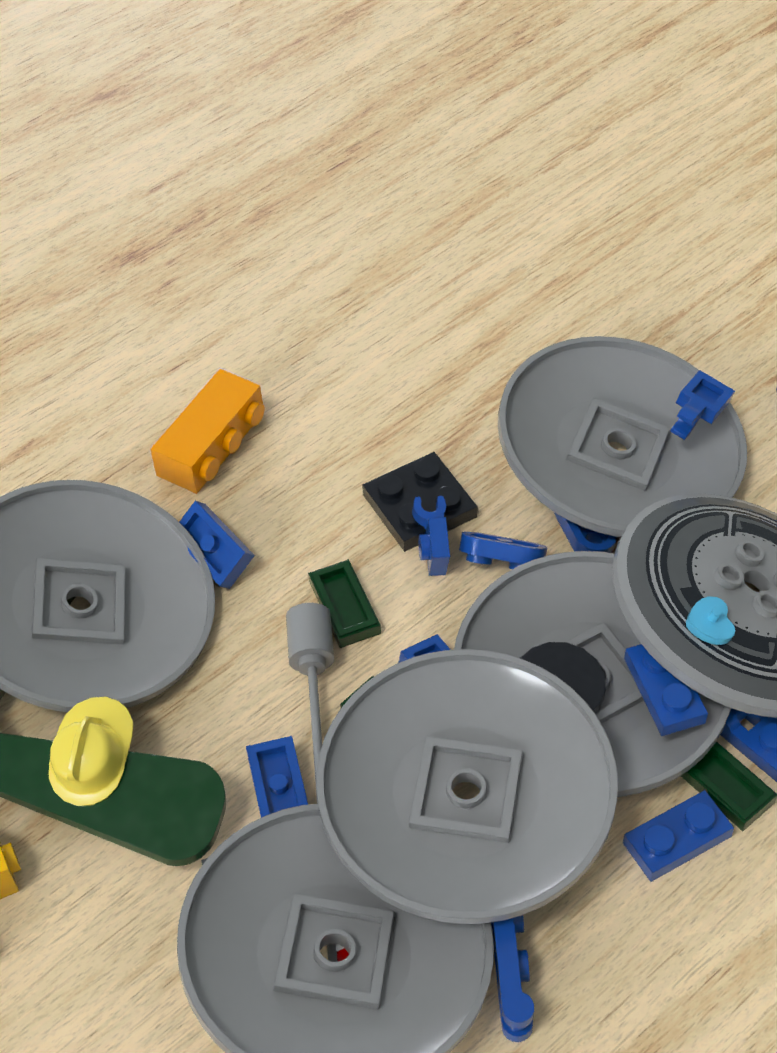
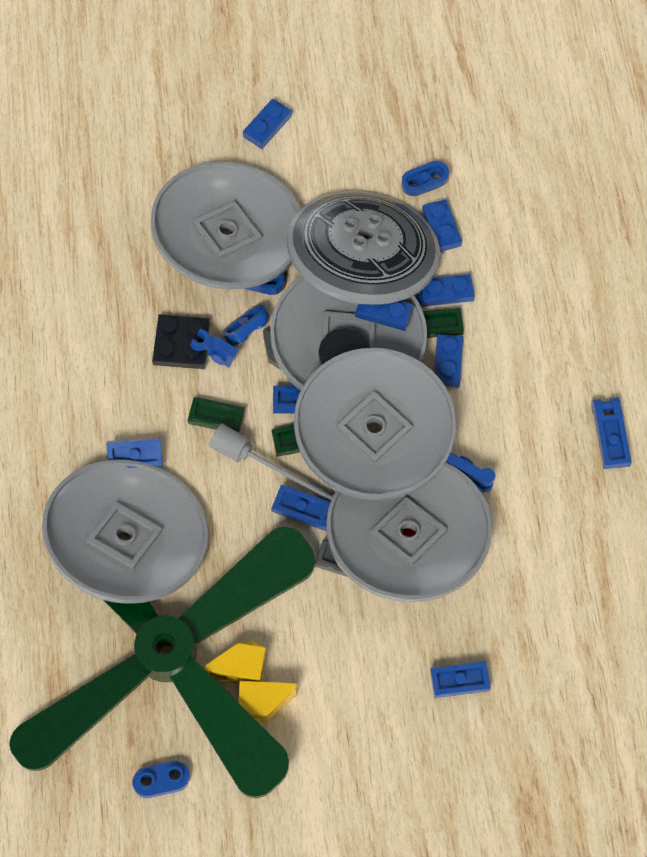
camera: 60 degrees left, 15 degrees up
(90, 751) = (227, 575): light yellow piece -> none
(208, 431) = (55, 410): light orange brick -> none
(701, 399) = (240, 175): blue plate -> none
(710, 621) = (377, 268): medium azure piece -> none

